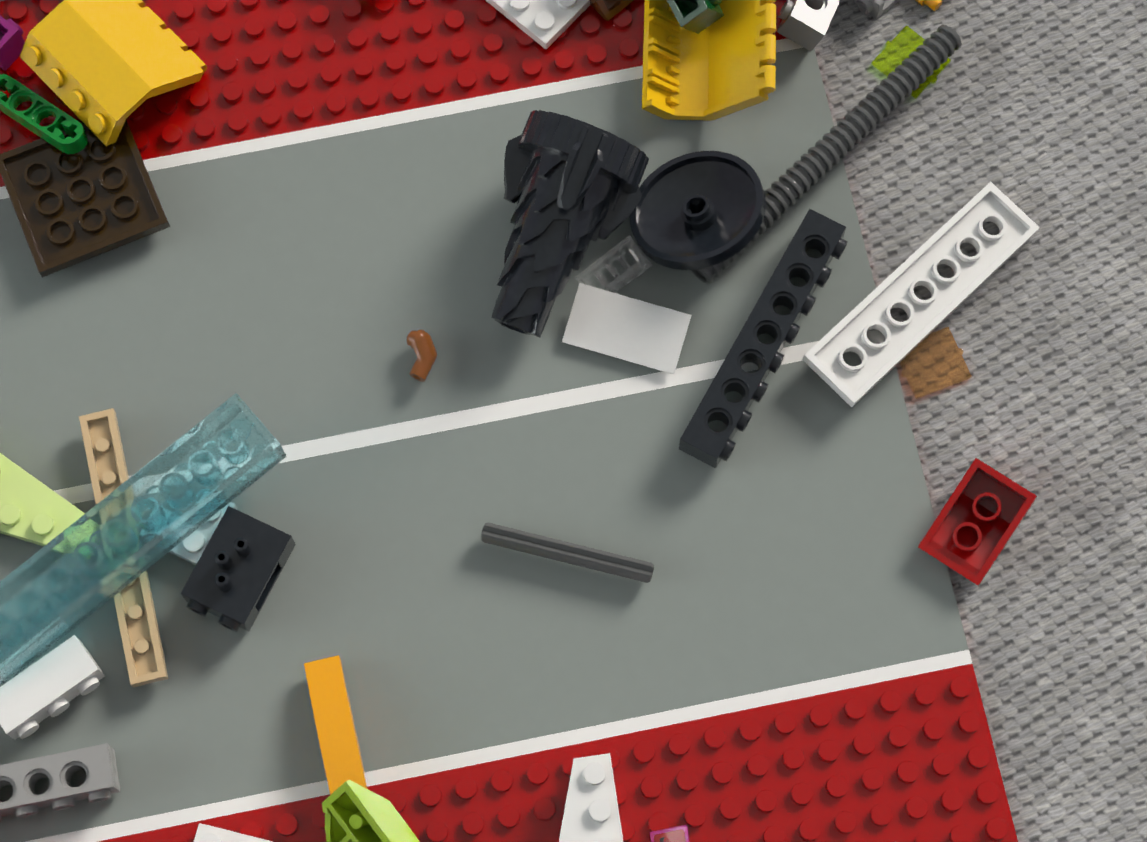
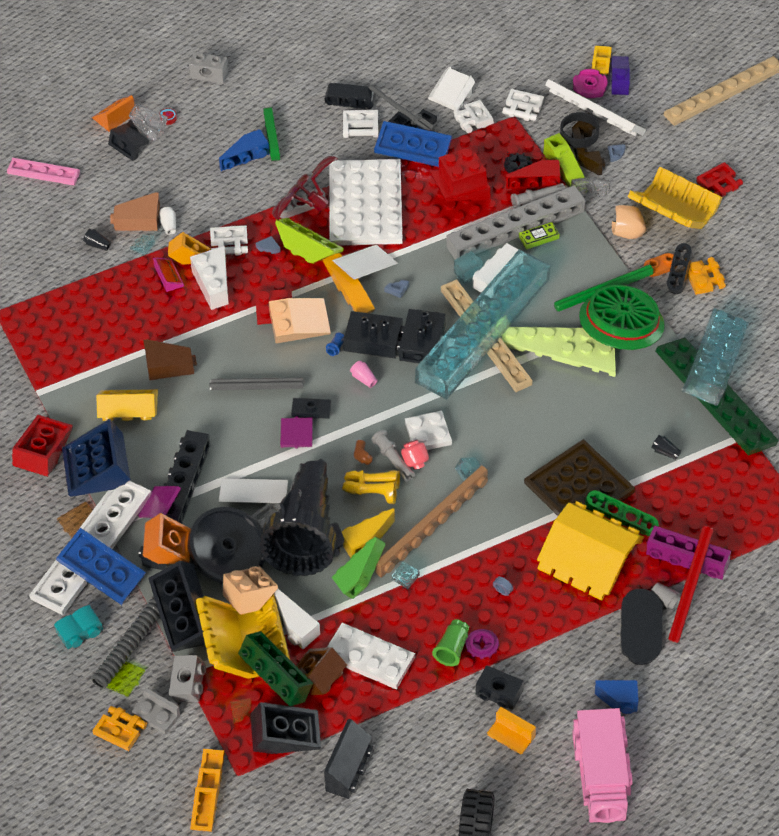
camera: 165 degrees right, 20 degrees down
(97, 712) = (466, 266): none -> clear light blue brick
(246, 709) = (397, 288): none -> sand blue tile
(249, 279) = (467, 467): none -> clear light blue slope
(273, 40) = (503, 586): none -> sand blue tile
(289, 774) = (365, 262): none -> white sticker
(294, 371) = (429, 429): none -> white plate
(324, 598) = (373, 334): none -> black piece
(334, 313) = (415, 454): none -> coral head
(336, 189) = (428, 524): none -> medium nougat plate
(370, 518) = (363, 373): none -> bright pink cone
(373, 344) = (389, 449): none -> light grey pin
(391, 278) = (387, 483): none -> yellow piece
(400, 599) = (333, 347): none -> blue pin
(420, 100) = (405, 575): none -> clear light blue plate
(454, 664) = (298, 318): none -> light nougat slope
(466, 183) = (359, 534): none -> yellow slope
(483, 474) = (311, 408): none -> black plate
(489, 727) = (262, 303): none -> red plate
(498, 106) = (357, 572): none -> bright green slope
(522, 433) = (296, 432): none -> magenta piece
(615, 53) = (298, 624): none -> white slope
(679, 119) = (248, 589): none -> light nougat slope
(719, 643) = (168, 360): none -> reddish brown slope
(794, 314) = (159, 501): none -> magenta piece
(799, 119) = (175, 597): none -> black slope
(800, 222) = (166, 540): none -> orange slope
(810, 566) = (127, 404): none -> yellow slope
(890, 434) = (96, 461): none -> dark blue slope
(915, 230) = (101, 566): none -> blue plate
(966, 151) = (78, 627): none -> teal brick

